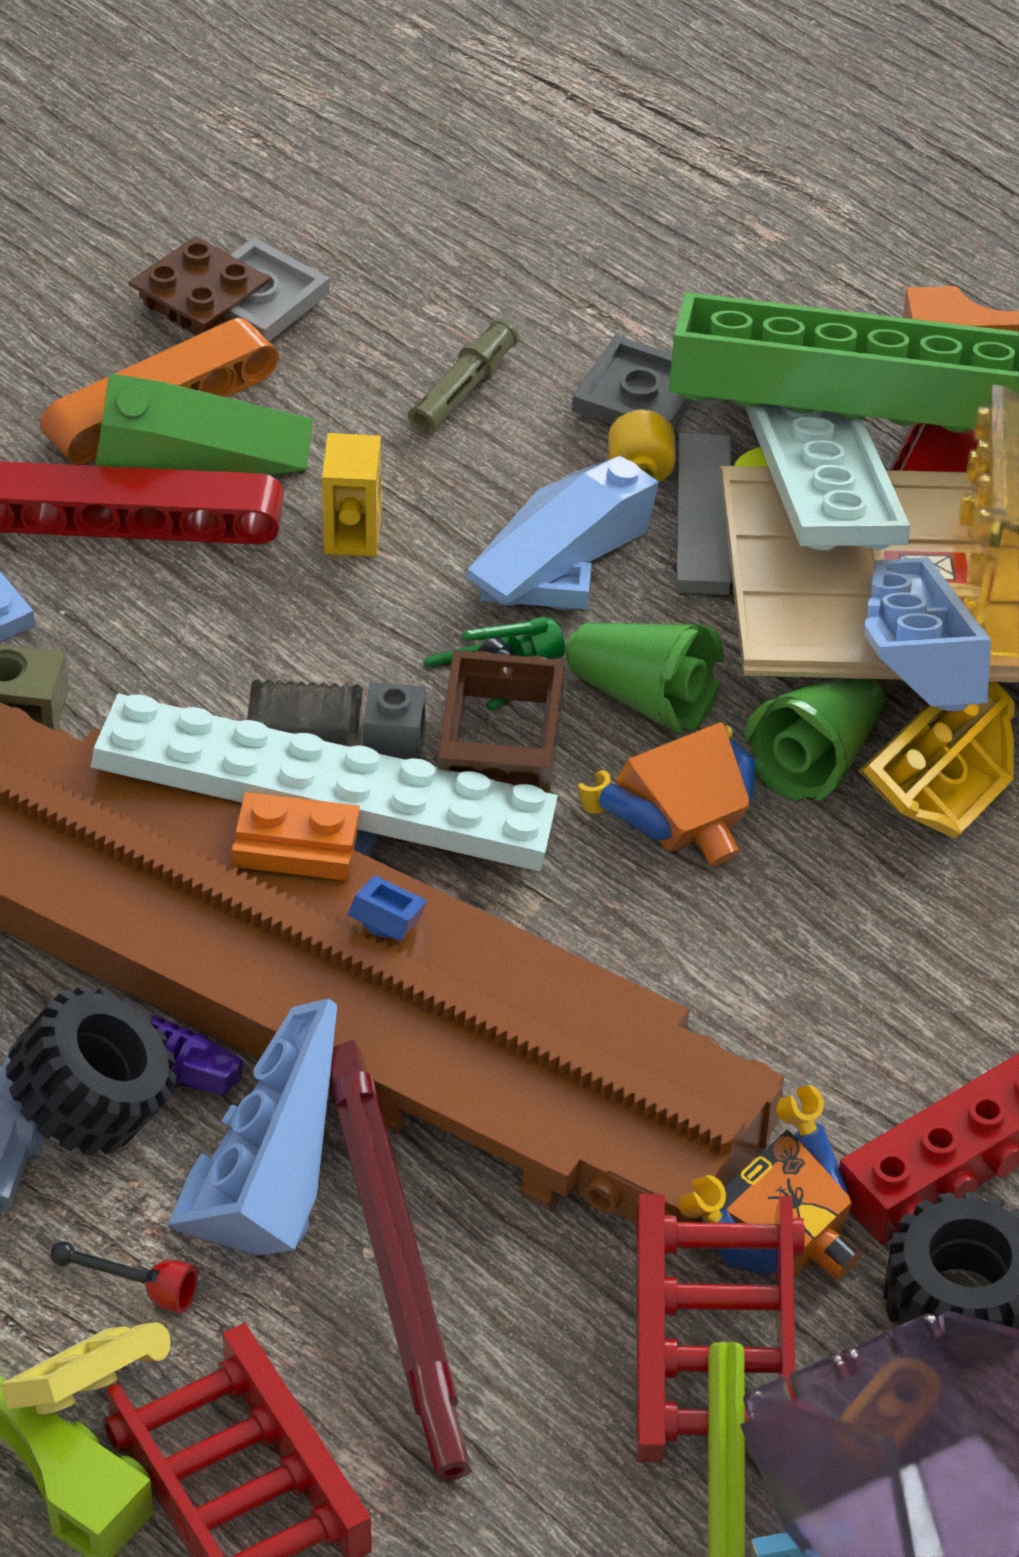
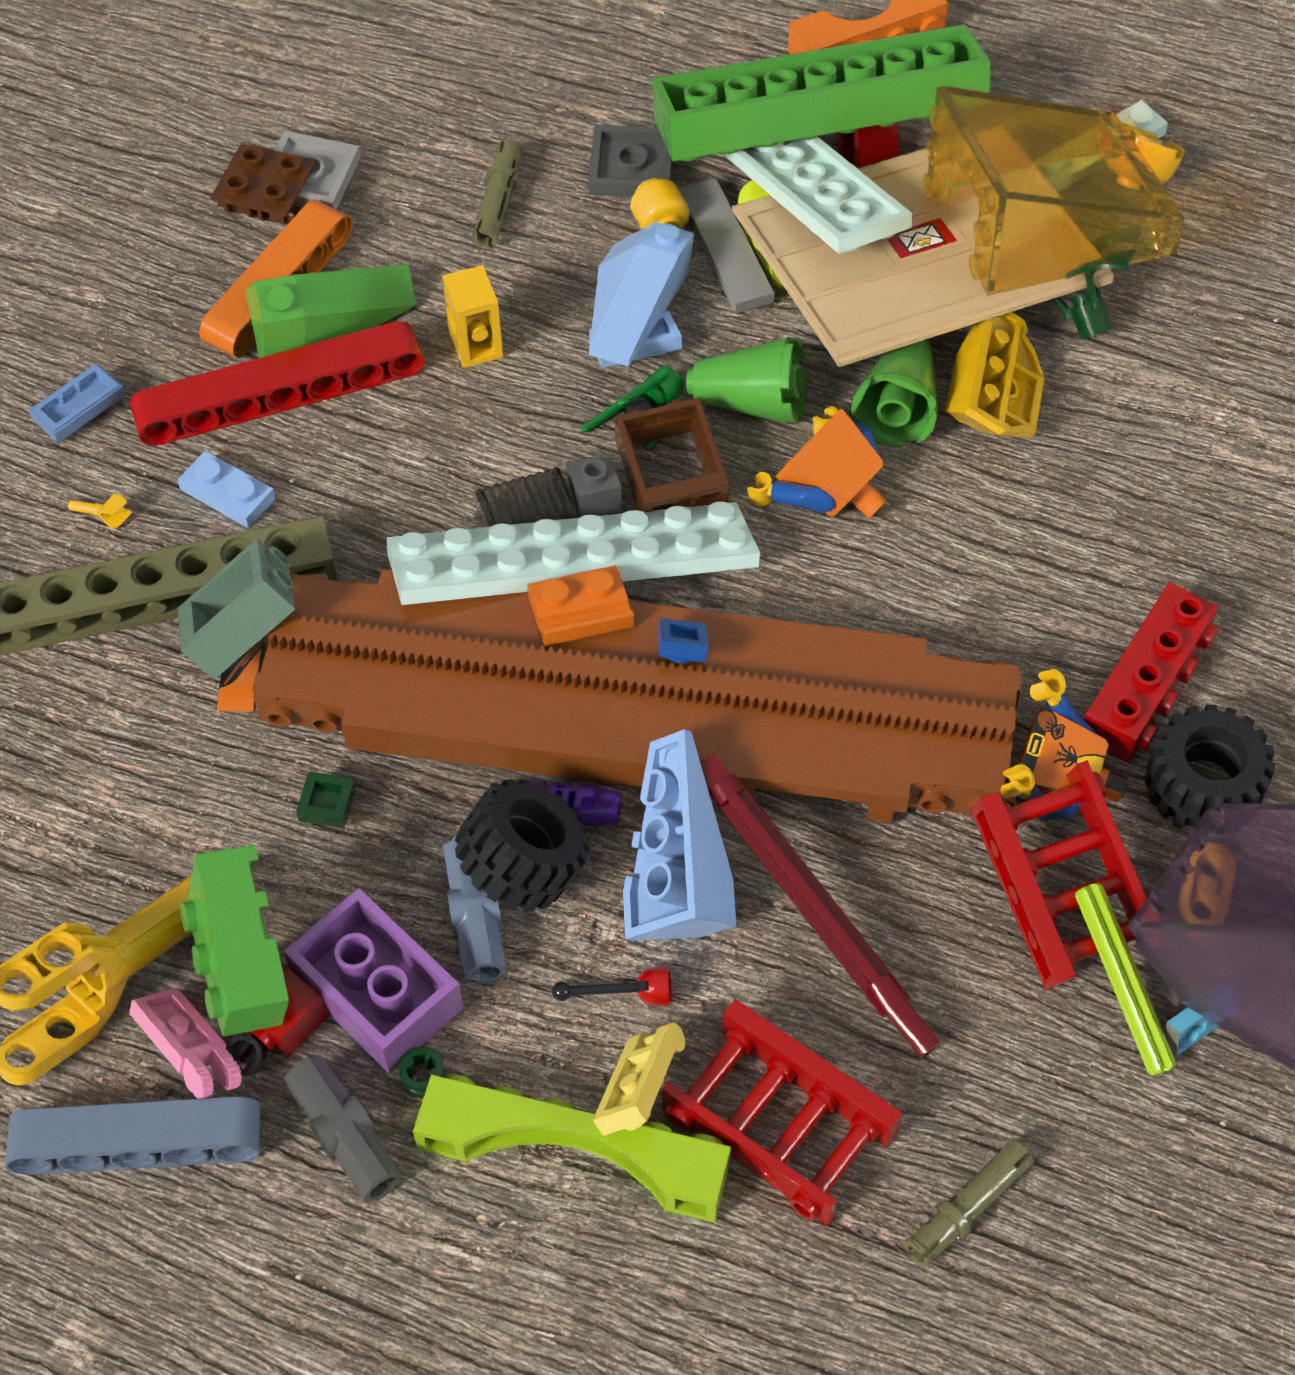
camera: 20 degrees left, 10 degrees up
(927, 634) = (961, 289): light blue wedge -> none

